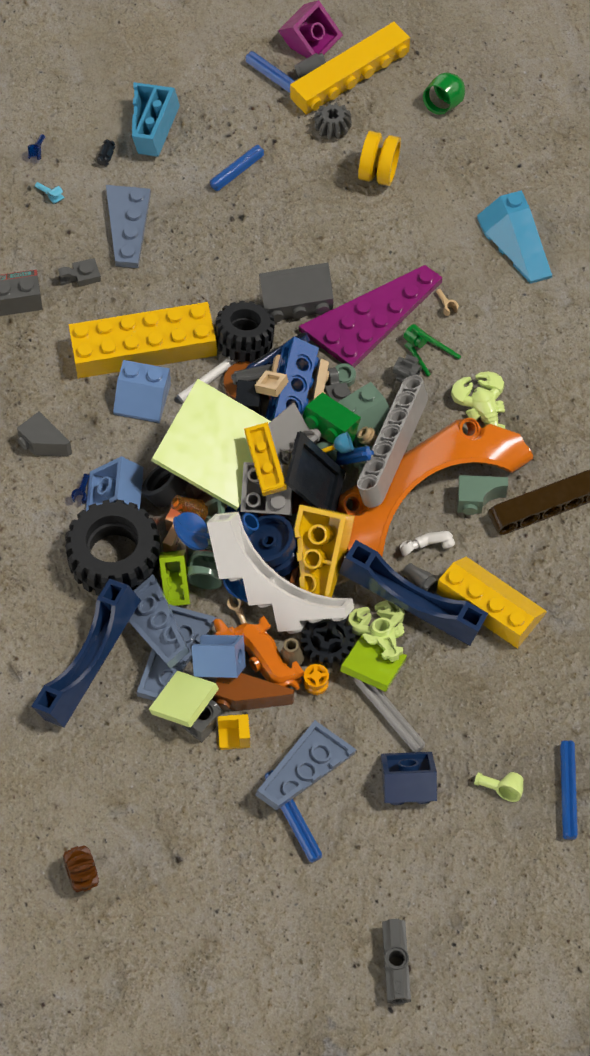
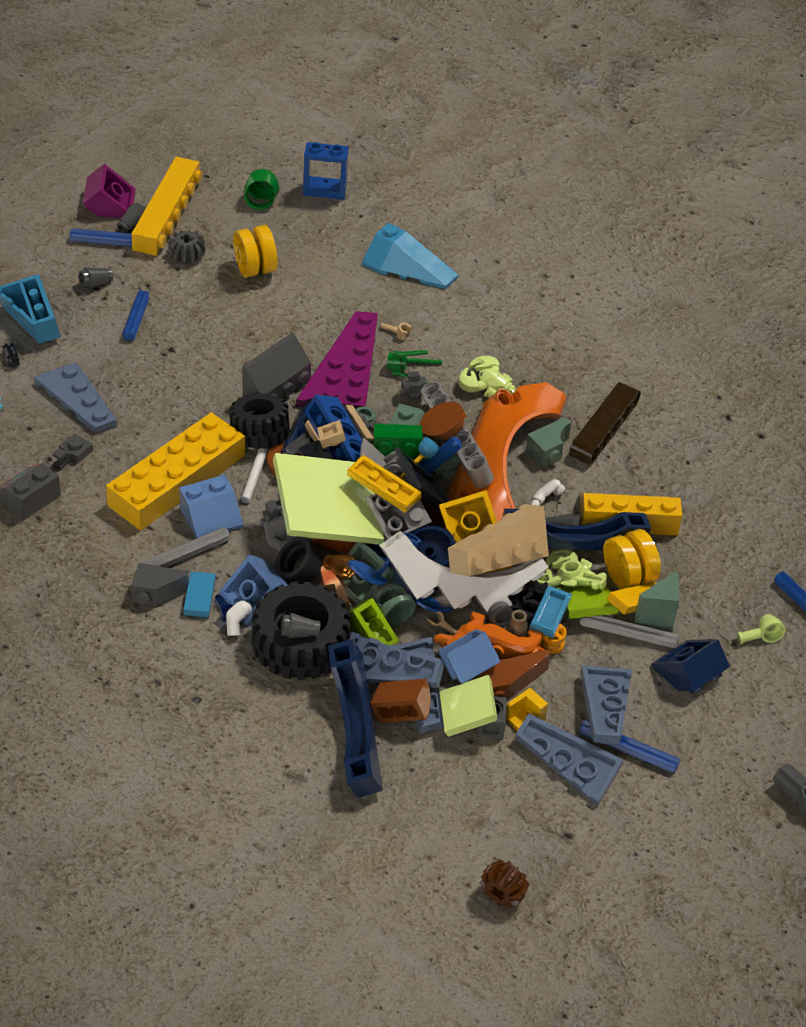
camera: 40 degrees left, 15 degrees down
(72, 465) = (199, 594): none -> dark azure tile
(77, 503) = (235, 615): none -> white arm
(93, 418) = (190, 548): none -> light grey axle
(96, 548) = (298, 626): none -> dark grey cone
(137, 660) = (401, 700): none -> dark orange brick
(232, 111) = (94, 277): none -> dark grey cone
(237, 806) = (577, 761): none -> sand blue wing
(284, 630) = (500, 614): none -> dark grey tile
(315, 574) = (508, 542): none -> tan wedge
(324, 656) = (550, 611): none -> dark azure tile
(383, 423) = (443, 421): none -> dark orange tile
(416, 689) = (627, 599): none -> yellow tile
(425, 707) = (659, 604): none -> sand green slope
(441, 651) = (632, 559): none -> yellow wheel
(503, 114) = (325, 186): none -> blue window

